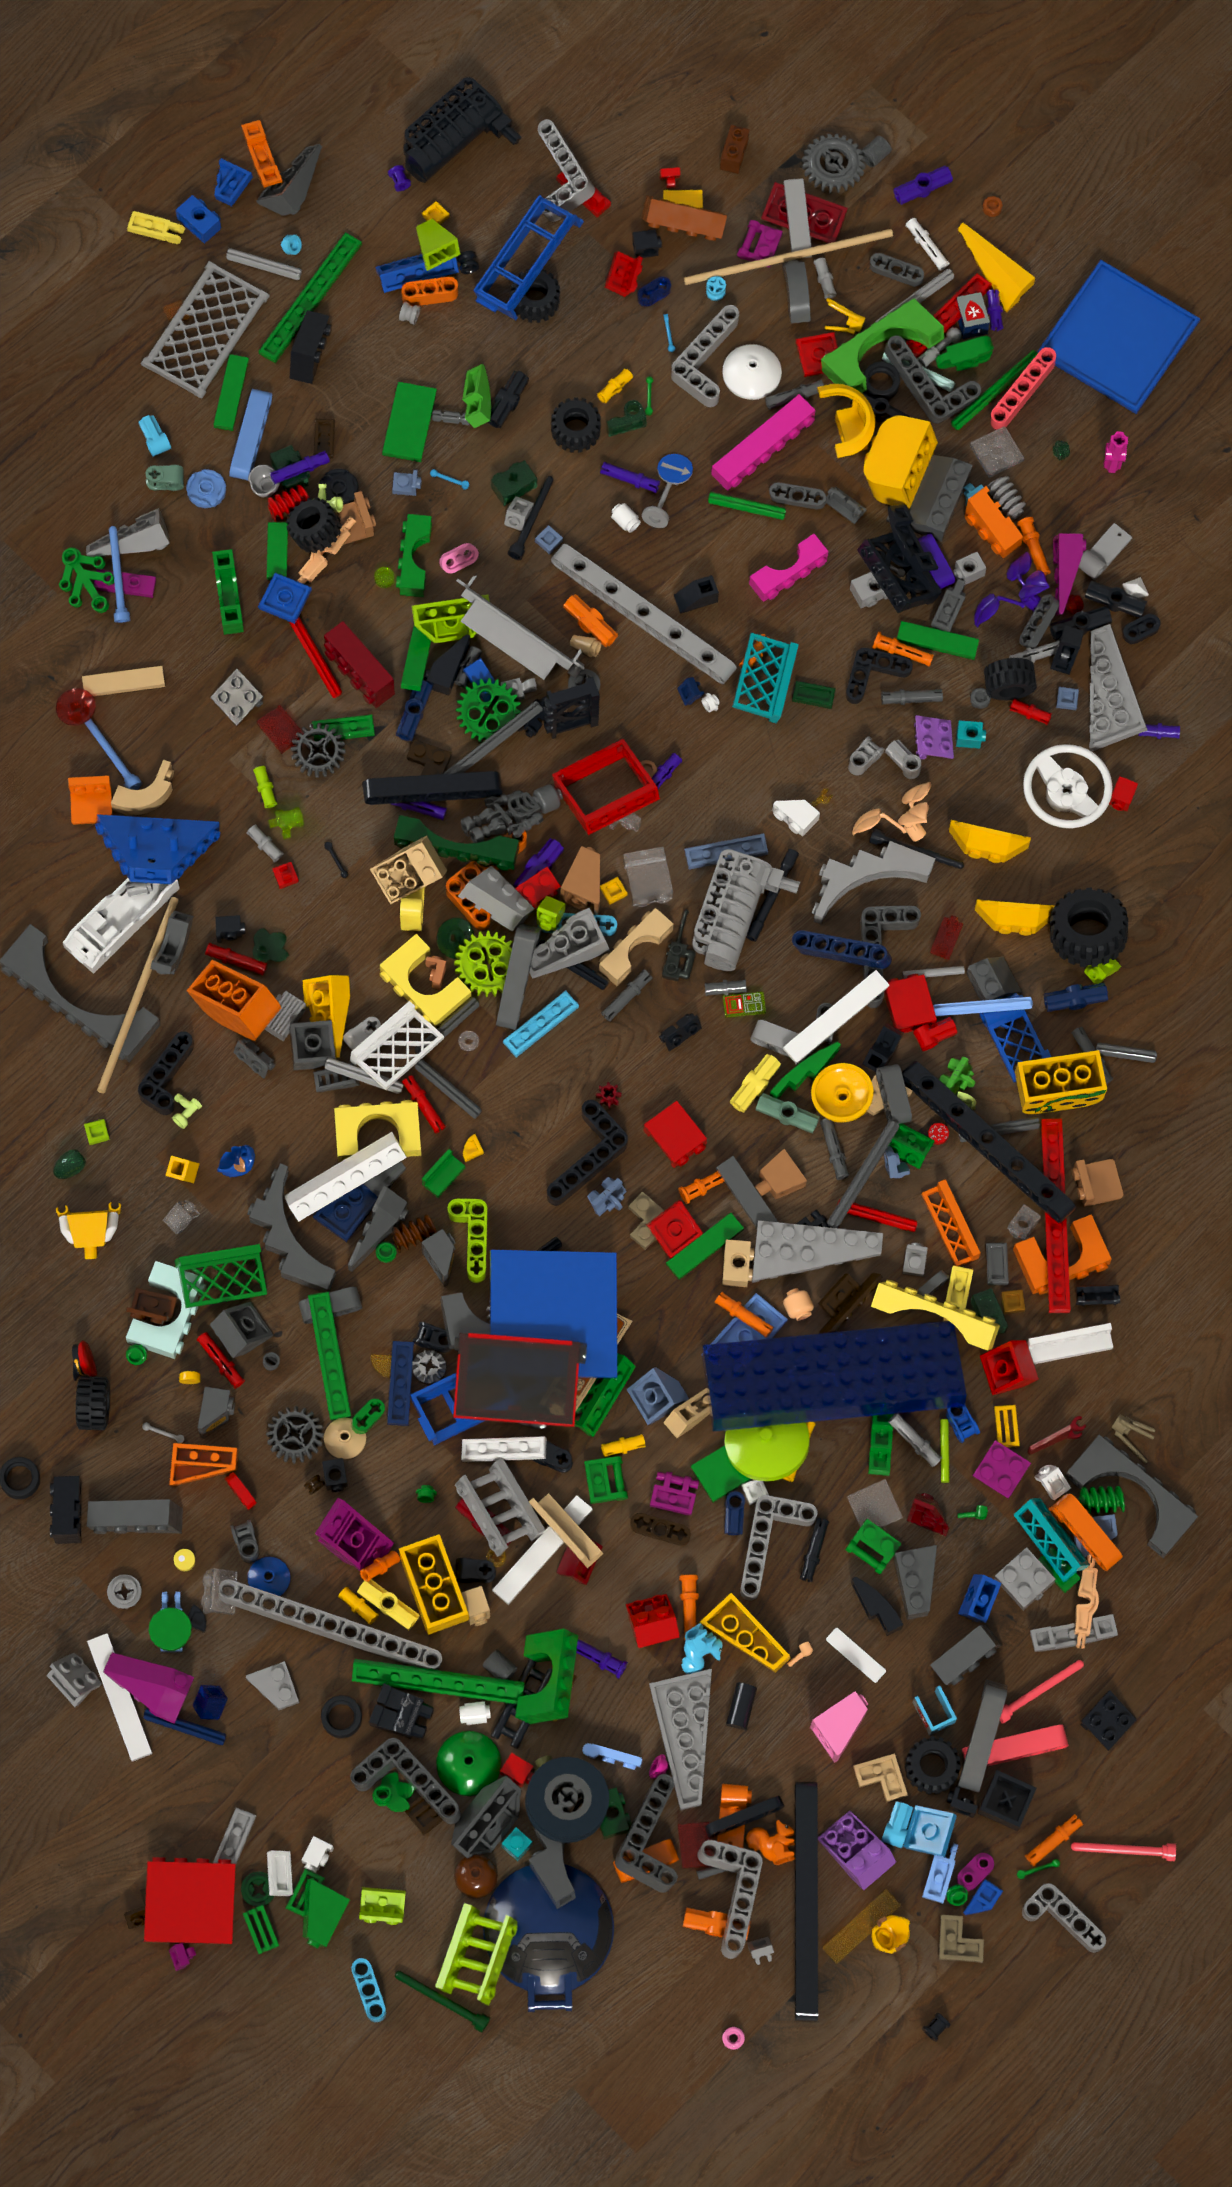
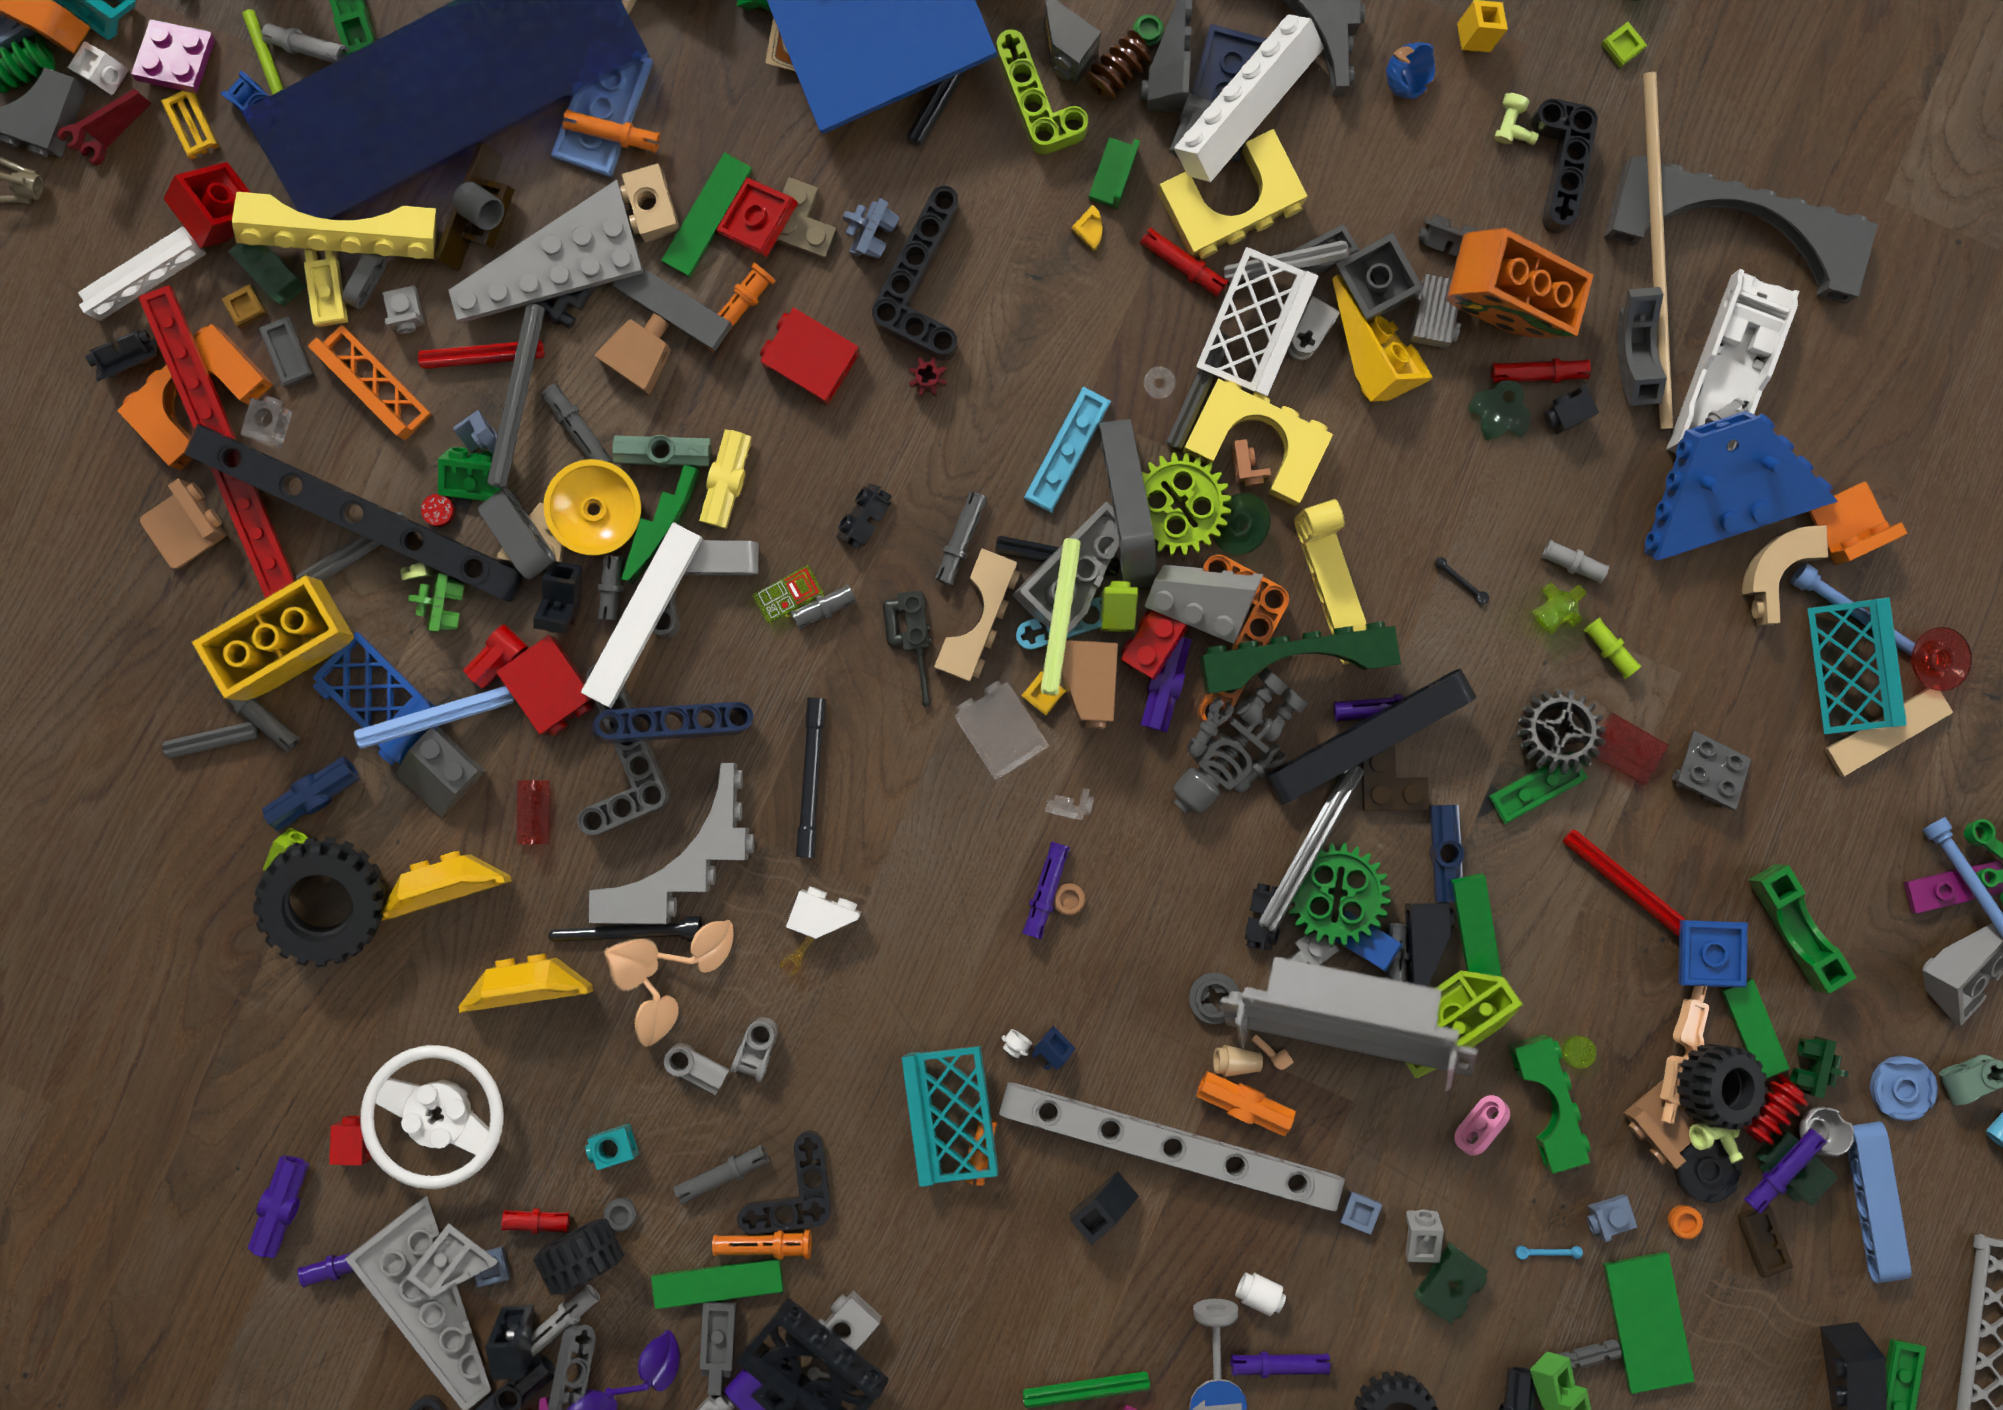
camera: 160 degrees right, 15 degrees up
(110, 715) = (1886, 660): none -> teal fence
(231, 392) = (1936, 1261): green tile -> none
(248, 514) = (1822, 1067): none -> dark green hips
(285, 875) = (1524, 527): red tile -> none
(359, 665) = (1560, 888): dark red brick -> none
(364, 465) = (1685, 1221): none -> orange tile
(409, 870) = (1349, 587): tan slope -> none
(447, 1088) = (1158, 300): dark grey axle -> none
(517, 550) = (1401, 1176): black piece -> none
(559, 636) = (1280, 1060): none -> light nougat hand
(584, 696) = (1216, 934): black fence -> none
(587, 914) = (1060, 616): none -> yellowish green axle
(617, 809) = (1080, 809): red window -> none
(709, 854) = (903, 819): sand blue tile -> none
(736, 906) = (853, 727): light grey piece -> none
(768, 581) = (1004, 1275): dark pink arch -> none
(798, 1304) = (540, 175): light nougat head -> none
(813, 694) = (869, 1120): dark green tile -> none
(843, 1293) = (478, 206): none -> dark grey piece
(850, 1046) = (610, 587): none -> dark grey pin
(933, 737) = (665, 1120): medium lavender hinge -> none
(936, 971) = (533, 752): light grey bar -> none
(1088, 705) = (449, 1262): none -> light grey wing
(1179, 775) = (278, 1206): none -> dark purple piece

